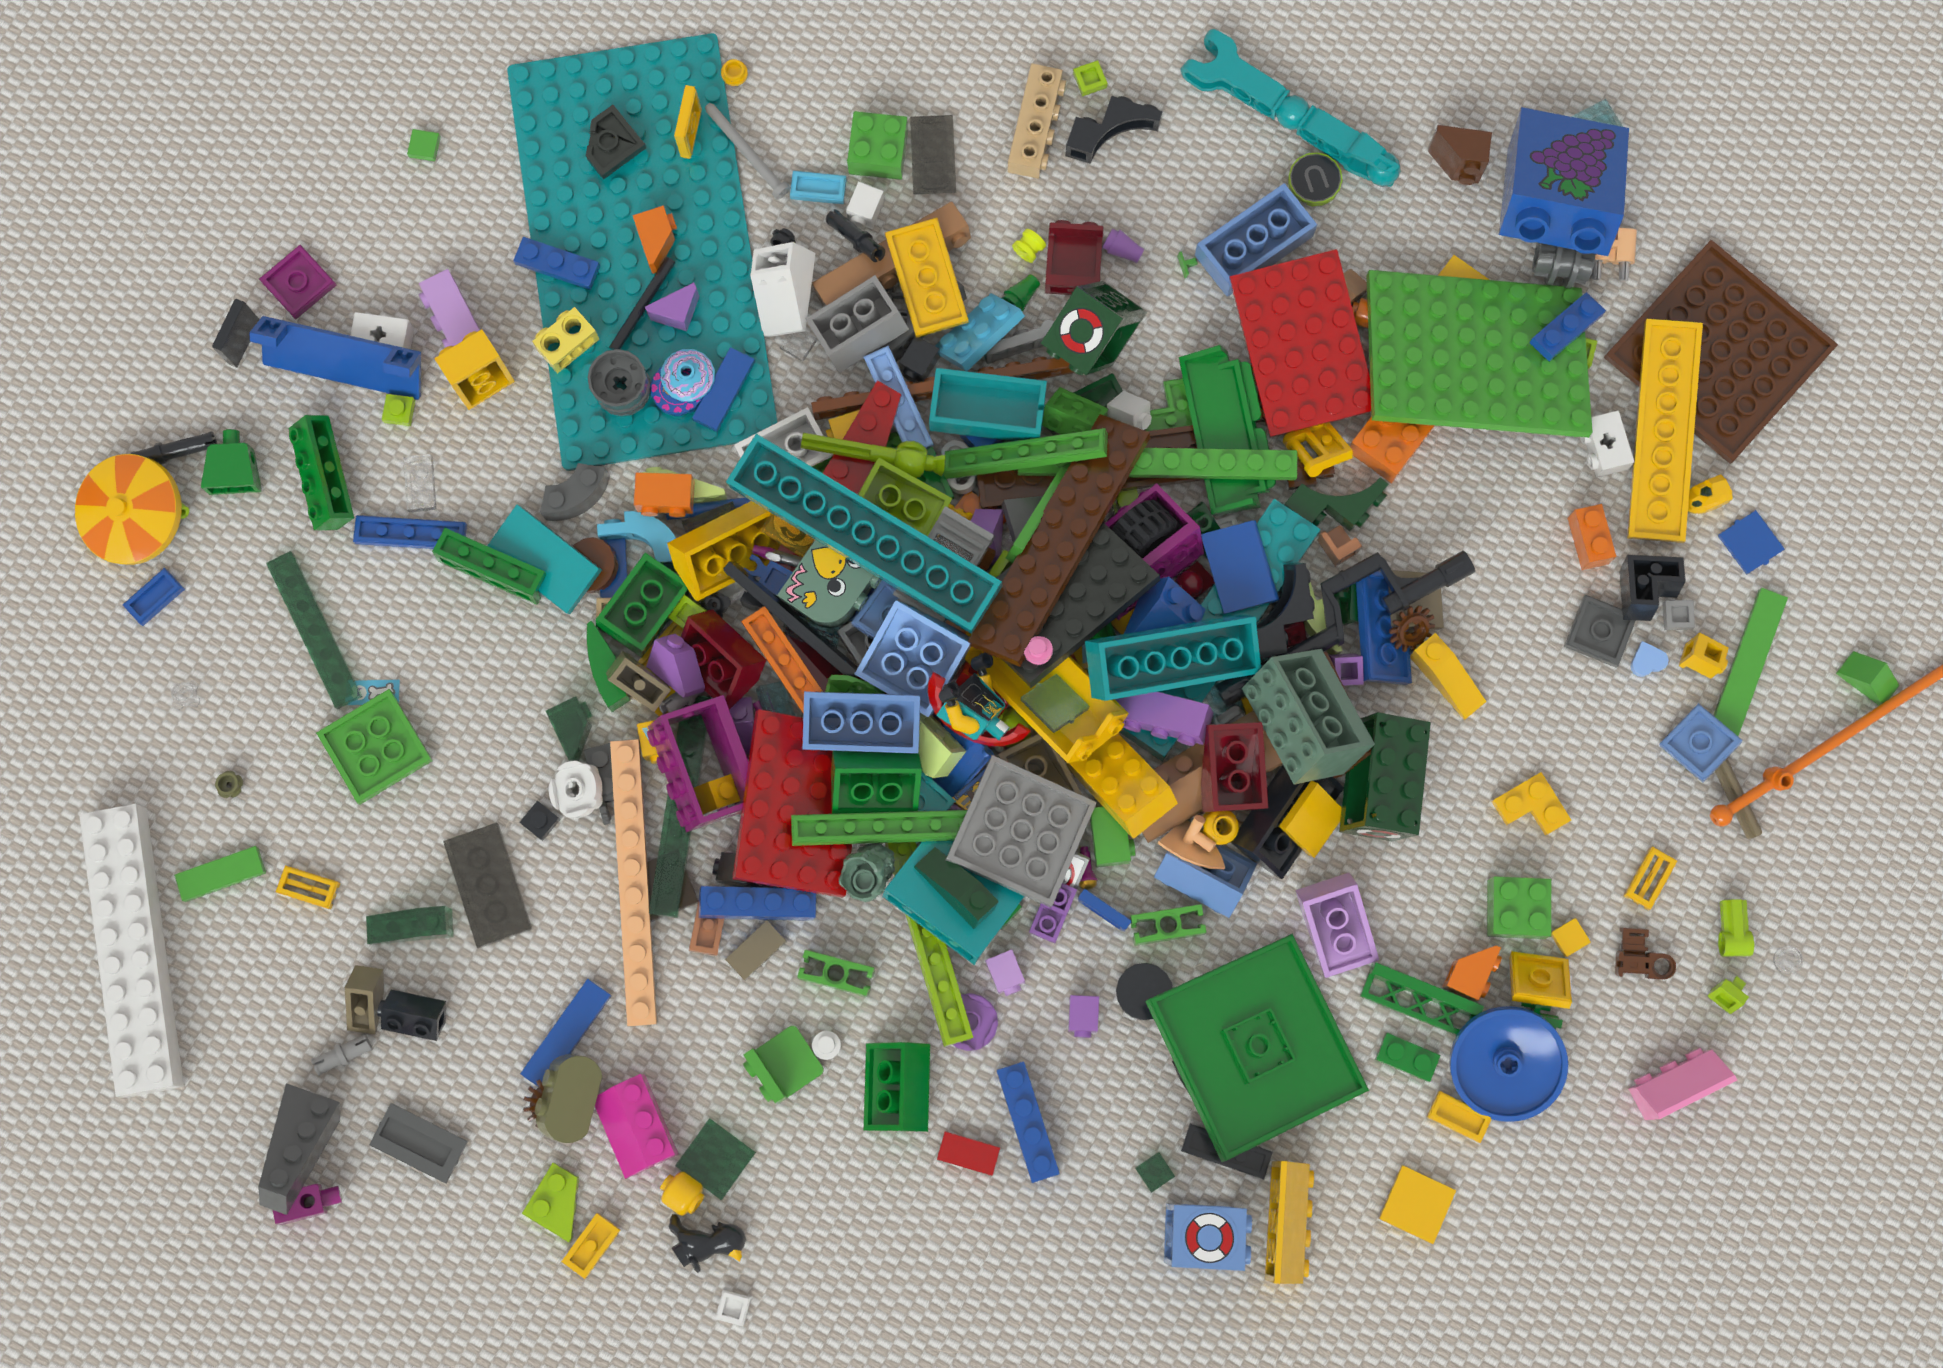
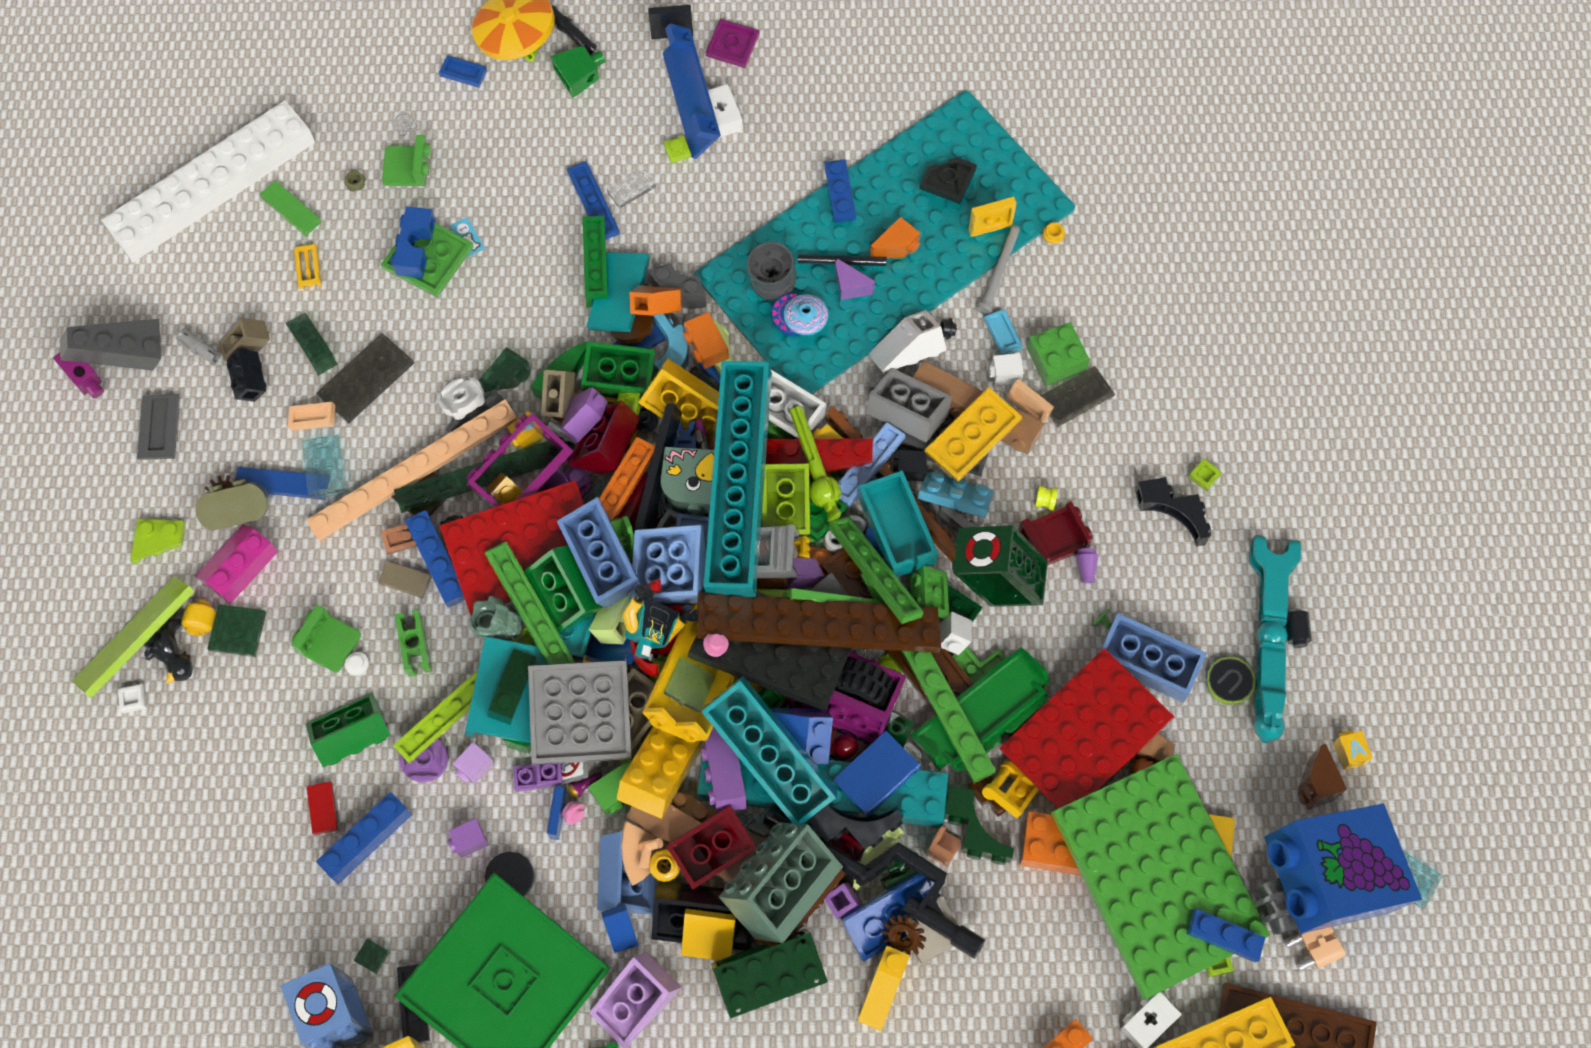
camera: 60 degrees right, 10 degrees down
(242, 715) = (407, 164): none -> bright green bracket
(314, 630) = (491, 178): clear green tile -> none
(321, 472) = (602, 122): green brick -> none
(335, 738) = (415, 225): none -> blue arch
(423, 145) = (876, 68): bright green tile -> none
(448, 306) = (763, 146): lavender brick -> none
(474, 369) = (727, 174): yellow brick -> none
(503, 965) = (311, 416): none -> light nougat tile
(539, 820) = (428, 387): black plate -> none
(570, 344) = (782, 228): light yellow brick -> none
(574, 977) = (324, 466): none -> clear light blue piece
(583, 523) = (655, 300): none -> orange slope
(591, 1245) = (134, 577): yellow plate -> none
(666, 1275) = (132, 636): none -> lime tile
(725, 389) = (810, 345): blue tile -> none
(861, 240) = (976, 375): black pin -> none
(915, 203) = (1030, 401): none -> light nougat tile
(1022, 292) = (1004, 510): green cone -> none
(1035, 121) = (1146, 452): tan brick -> none
(1112, 893) = (573, 812): none -> bright pink plate
(1173, 914) = (579, 869): bright green piece -> none
(1261, 903) = (619, 928): none -> blue tile
(1300, 83) = (1298, 629): none -> black brick
(1444, 106) = (1352, 749): none -> yellow brick

